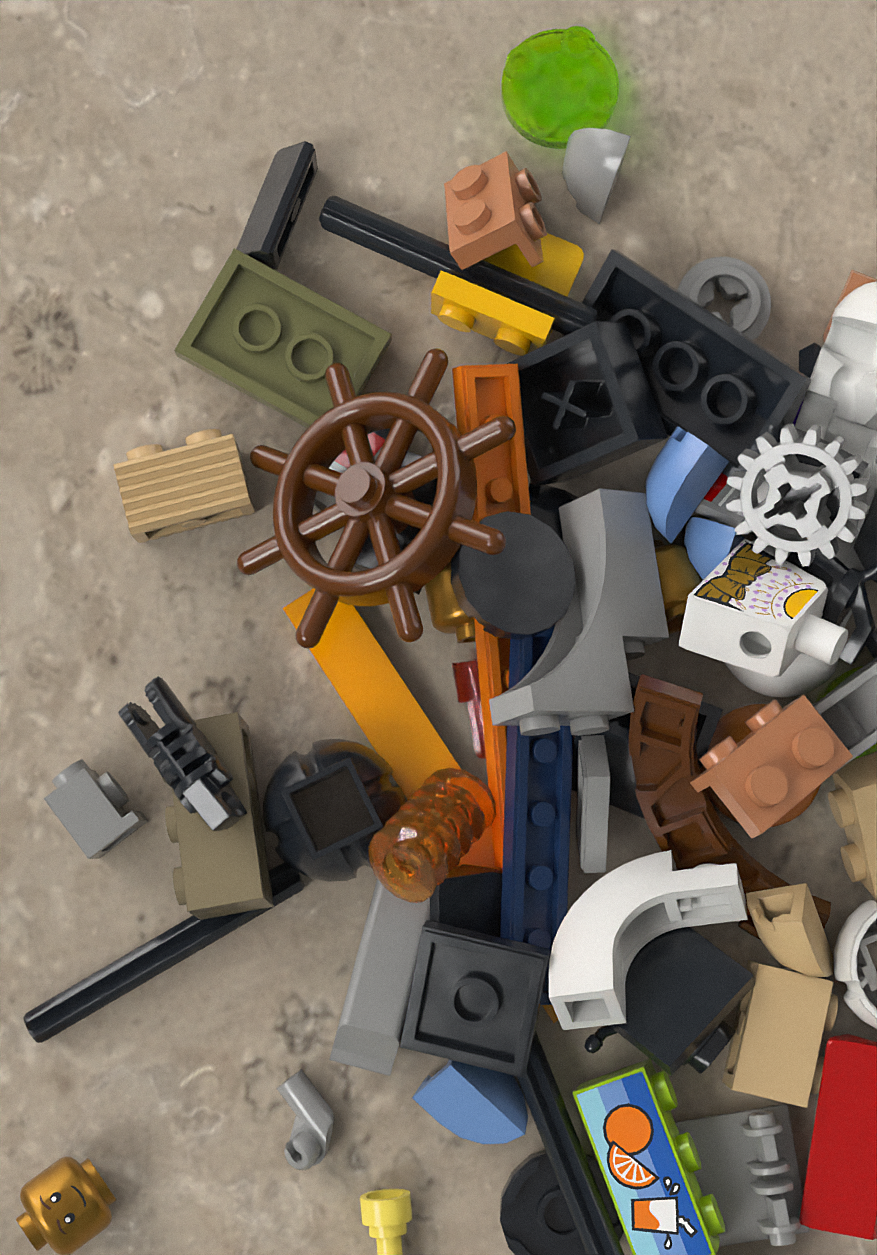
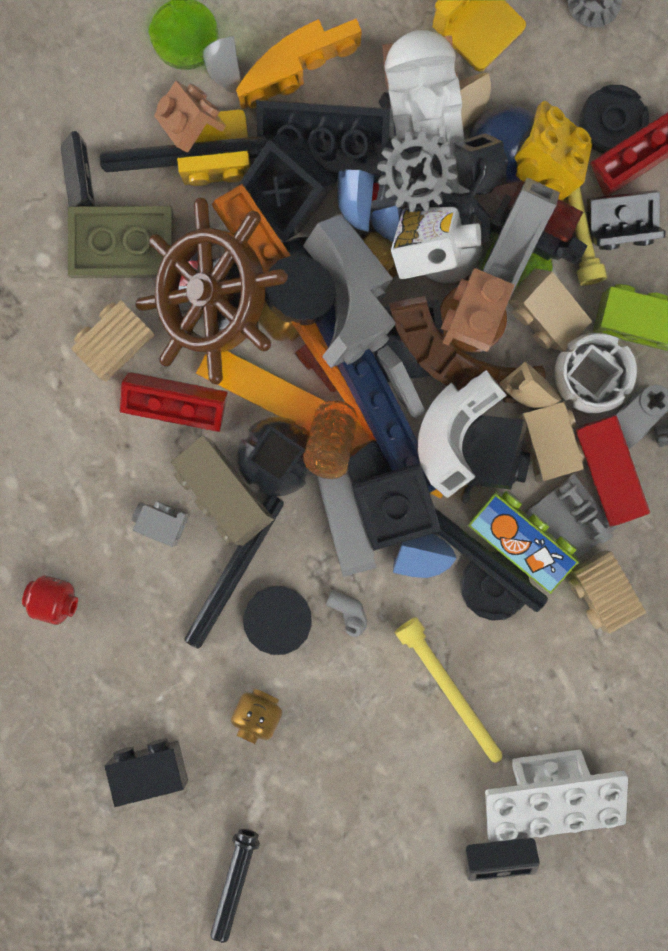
camera: 30 degrees left, 5 degrees up
(184, 757) = (189, 470): black hinge -> none
(187, 1069) = (277, 620): none -> black tile
(223, 631) = (173, 401): none -> red slope
(683, 217) = (283, 64): none -> light orange slope
(735, 281) = (328, 83): light grey gear -> none

